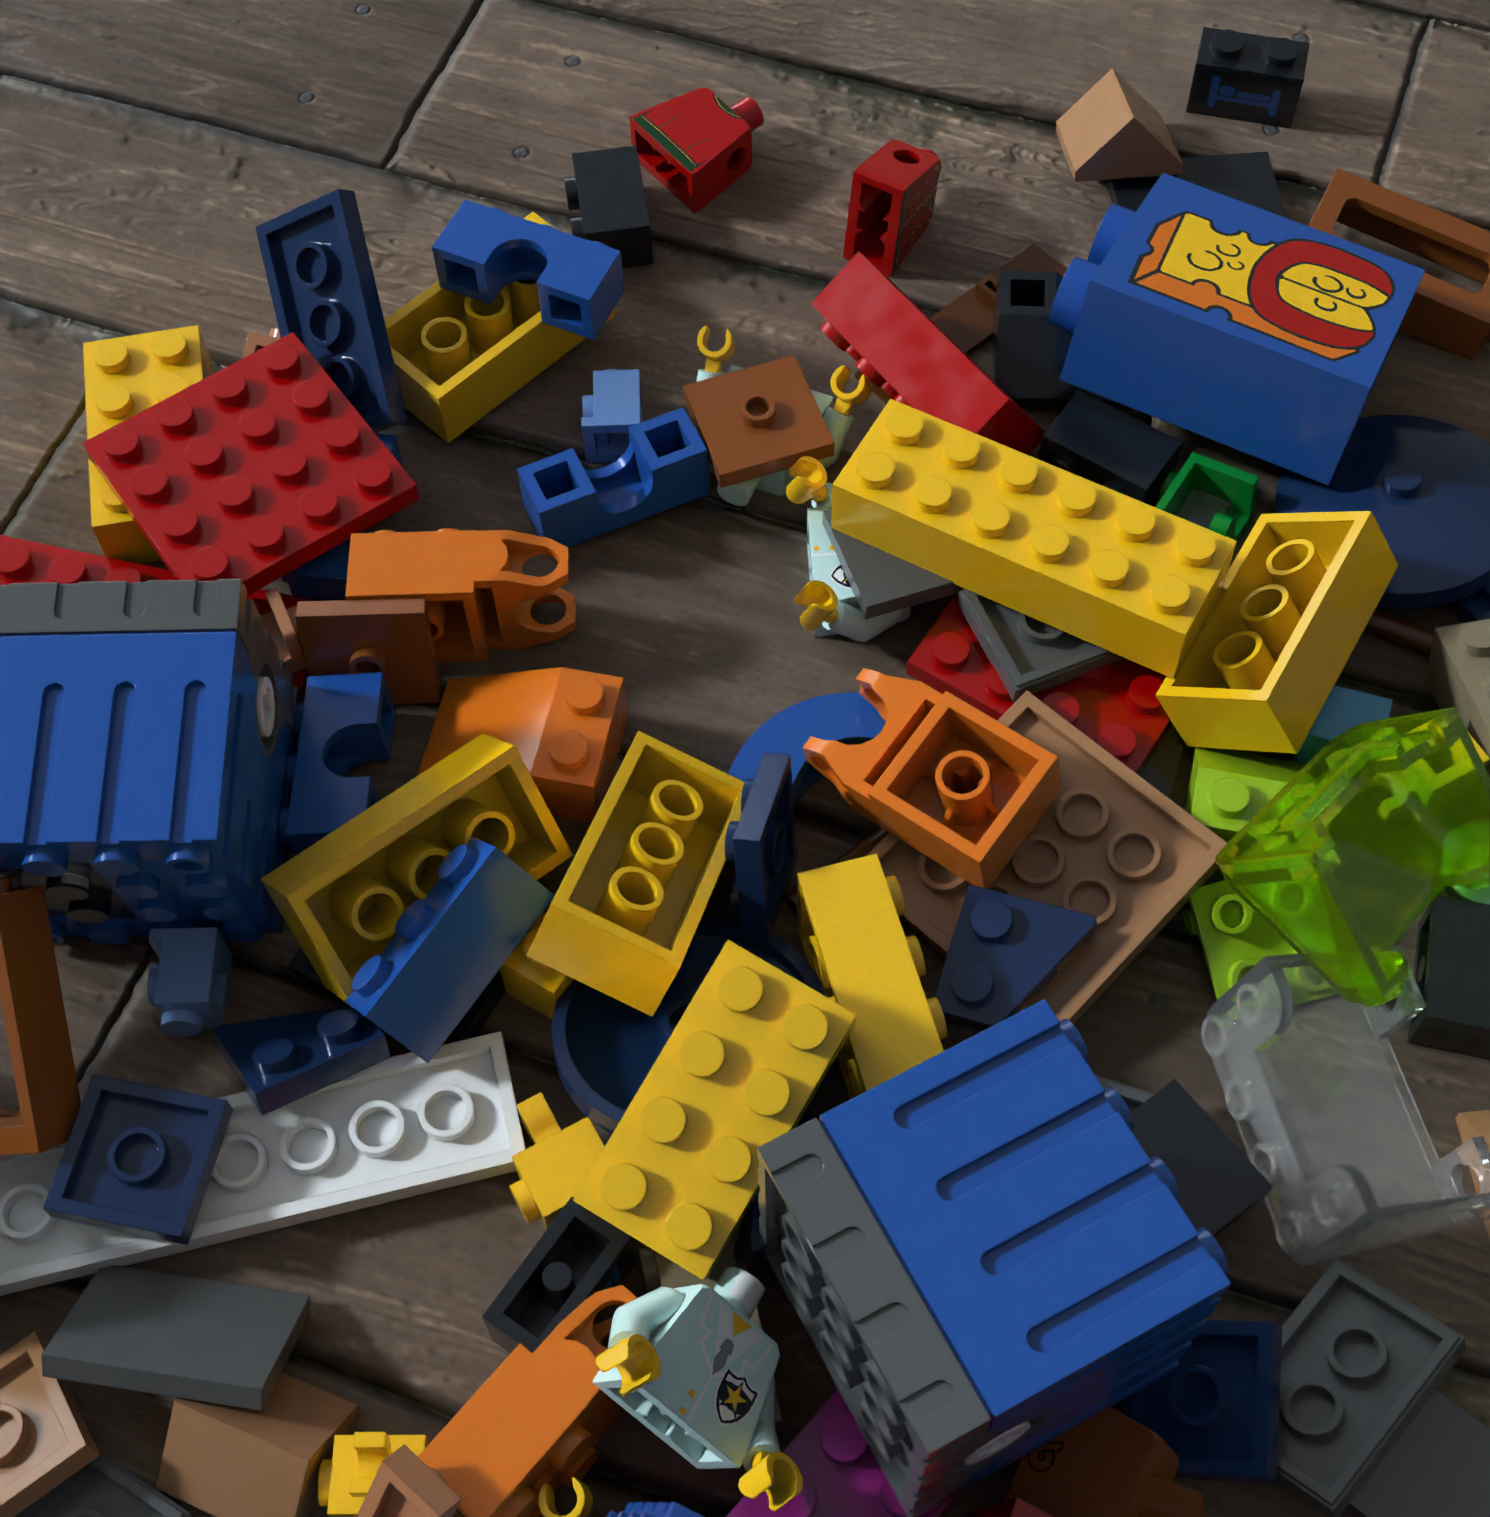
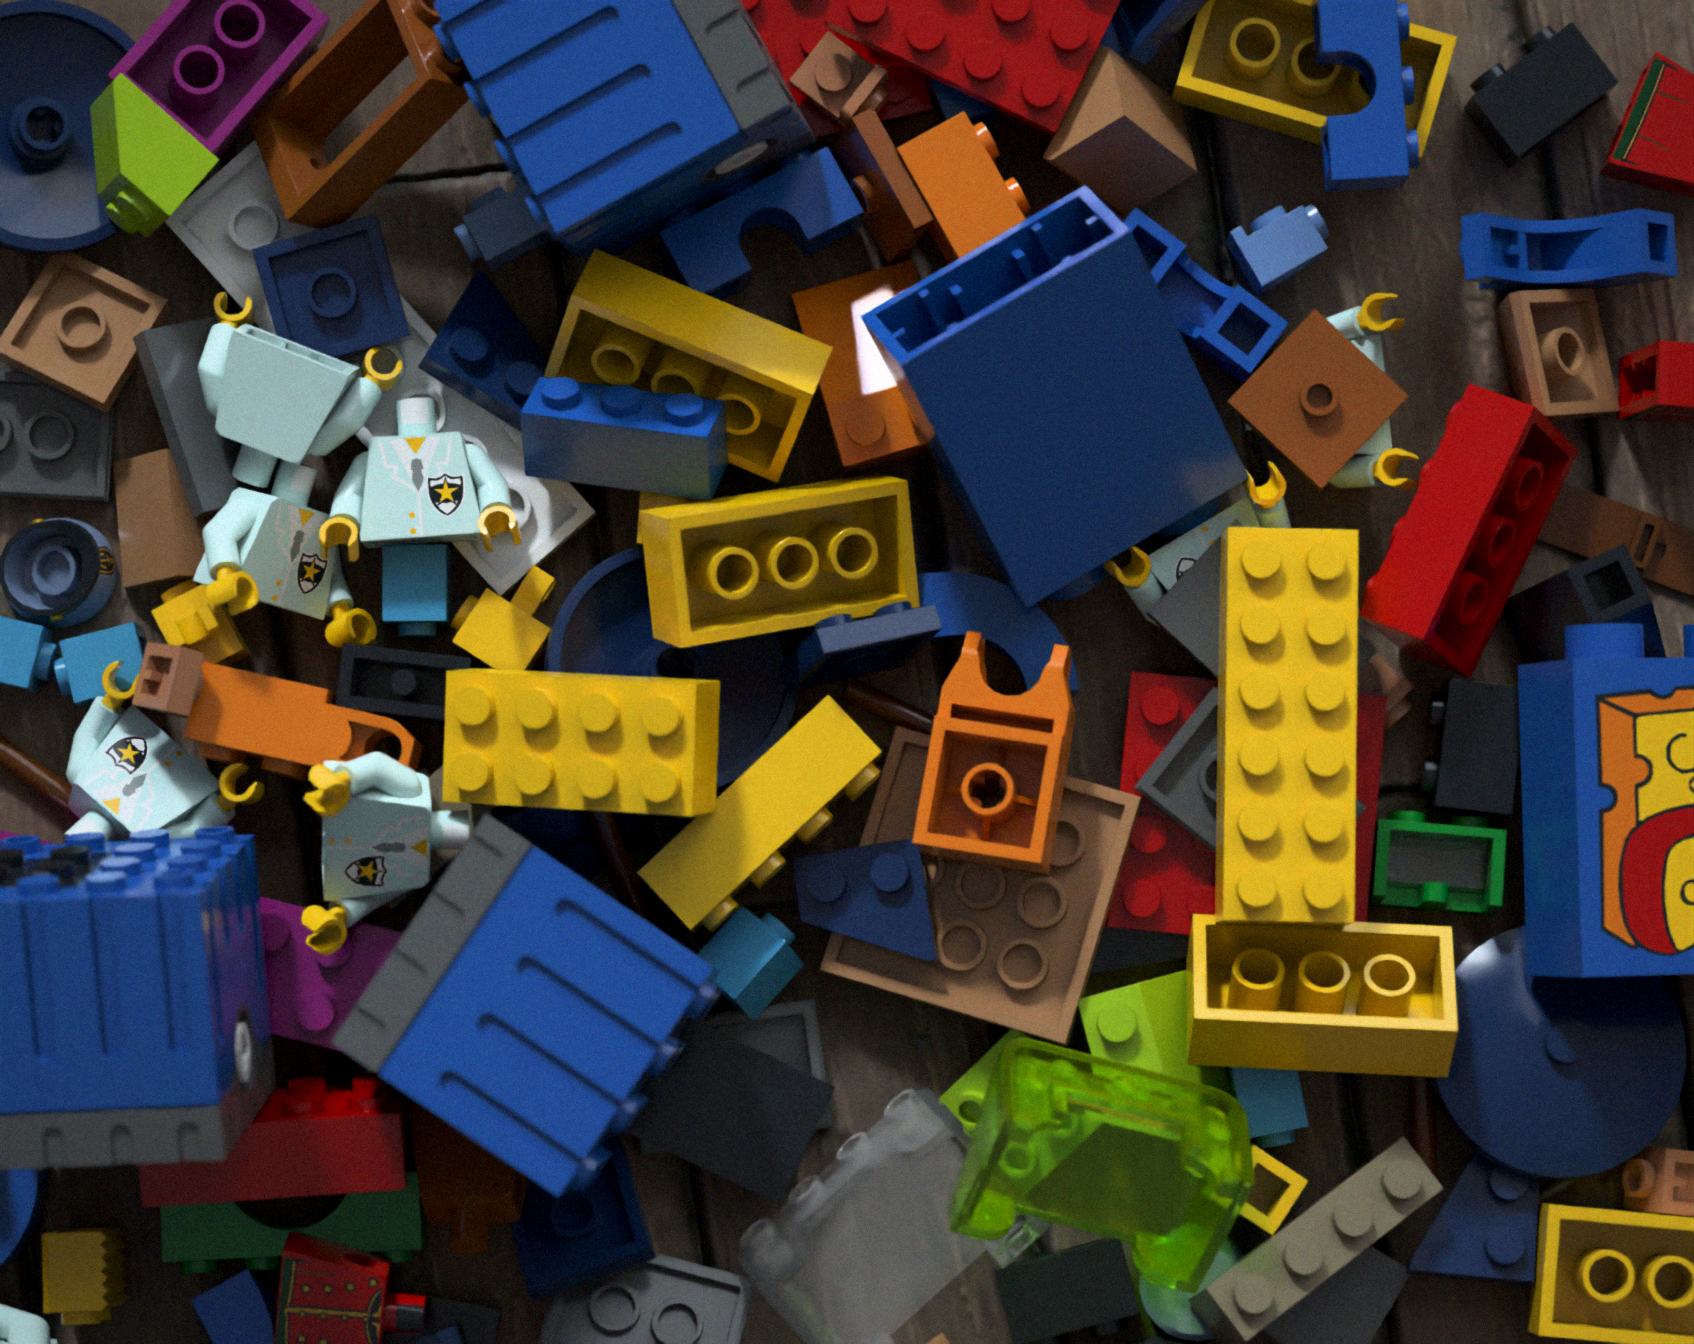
camera: 60 degrees right, 25 degrees up
(197, 1248) = (281, 394): none -> light aqua torso
(353, 1345) = (271, 554): none -> light aqua torso
(381, 1163) = (419, 490): none -> light aqua torso
(458, 466) = (1122, 136): none -> medium nougat slope
(471, 1235) = (417, 588): none -> dark azure brick
(637, 569) = (1058, 398): none -> blue brick
(748, 233) = (1568, 253): none -> blue arch
(790, 282) = (1558, 353): none -> medium nougat slope

